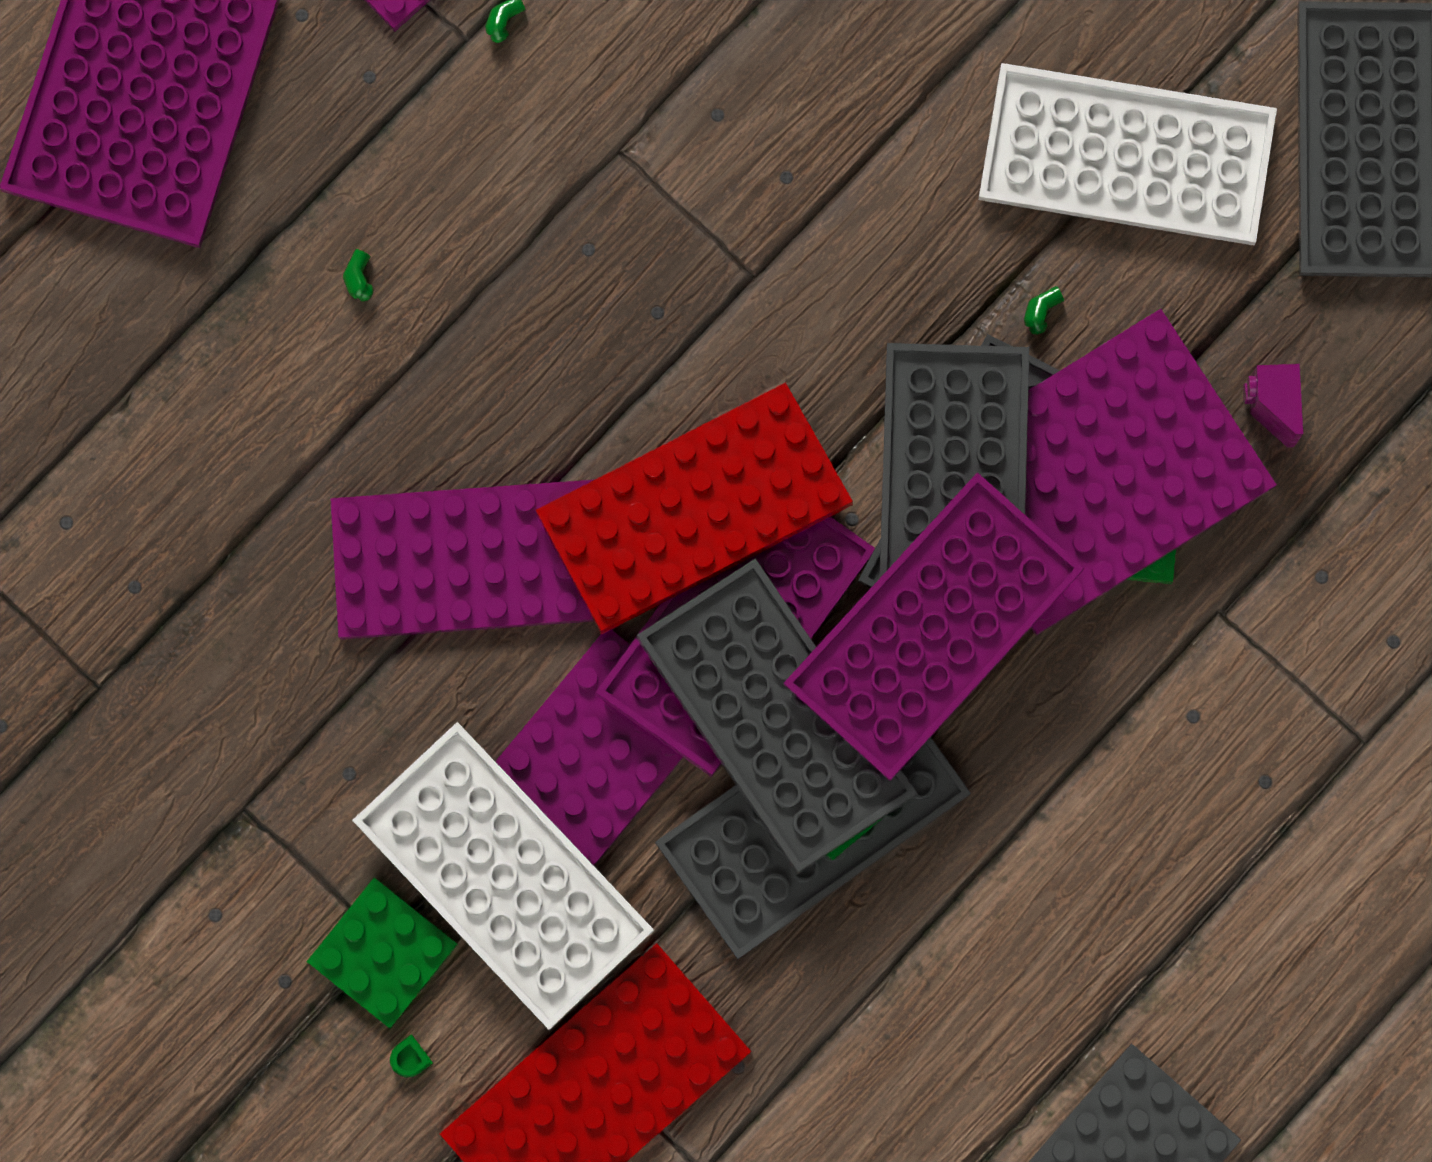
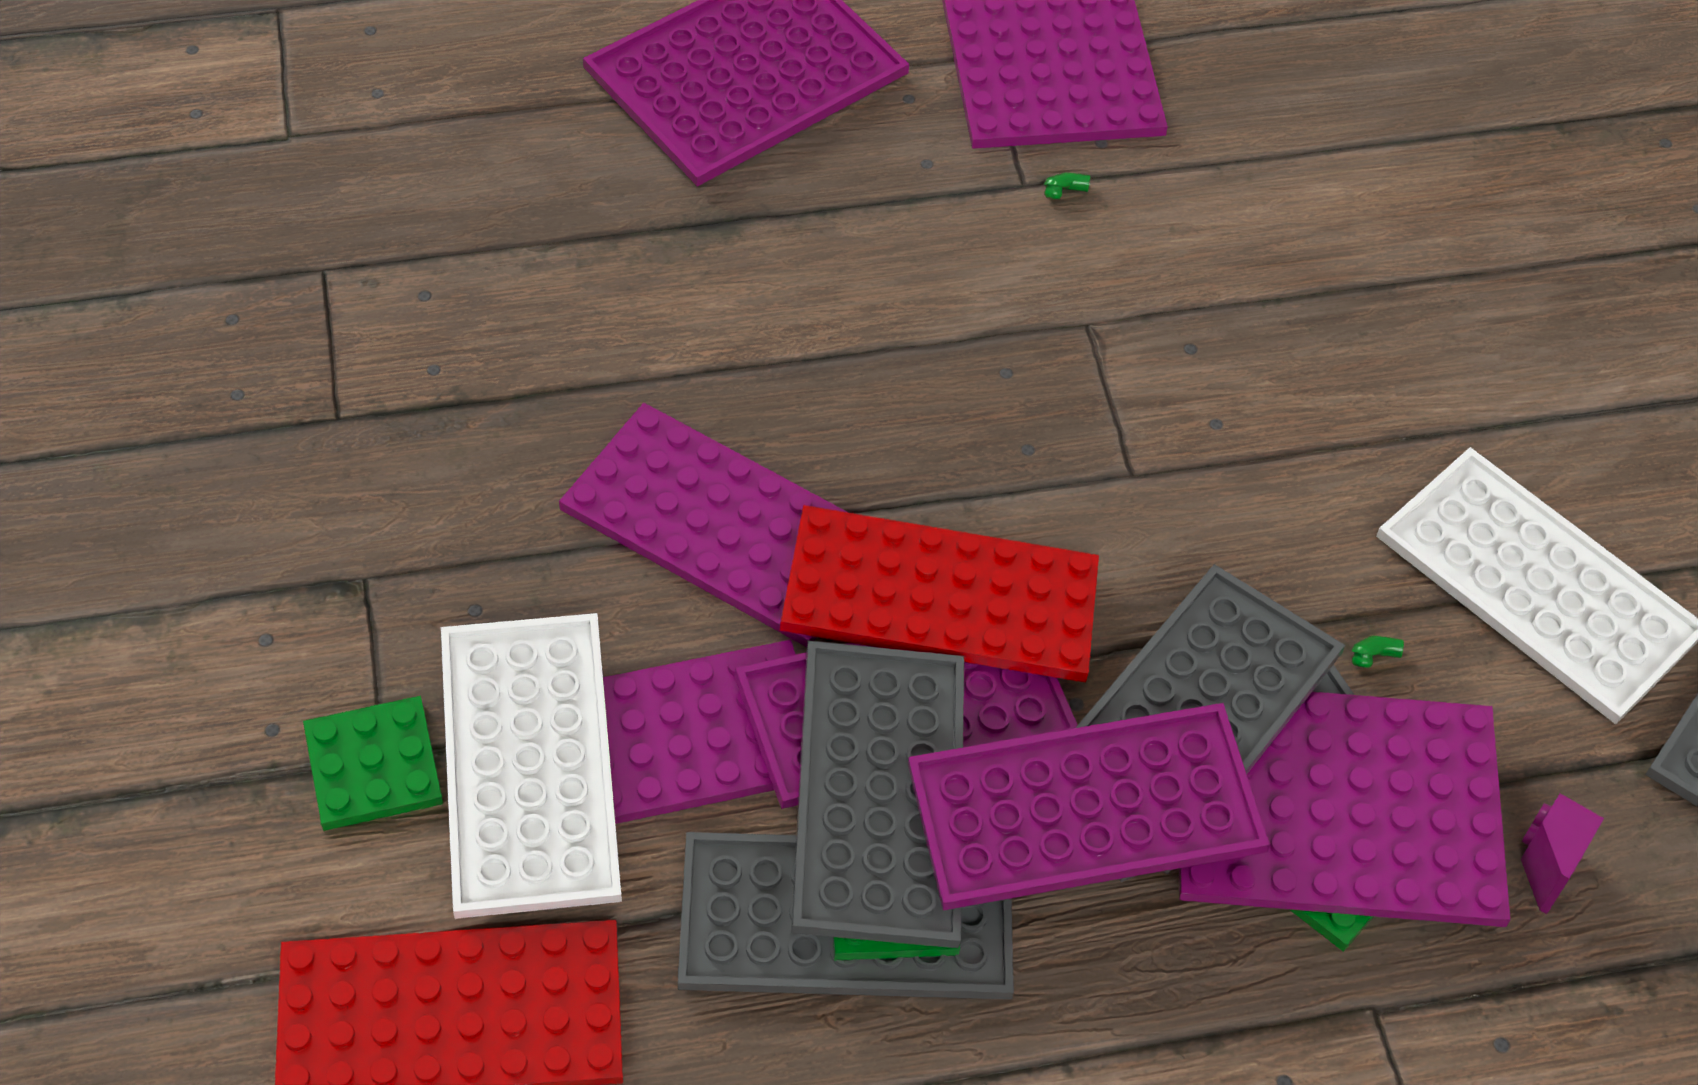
camera: 30 degrees right, 25 degrees down
(354, 277) = (801, 271): green arm -> none
(409, 1058) = (315, 863): green tile -> none

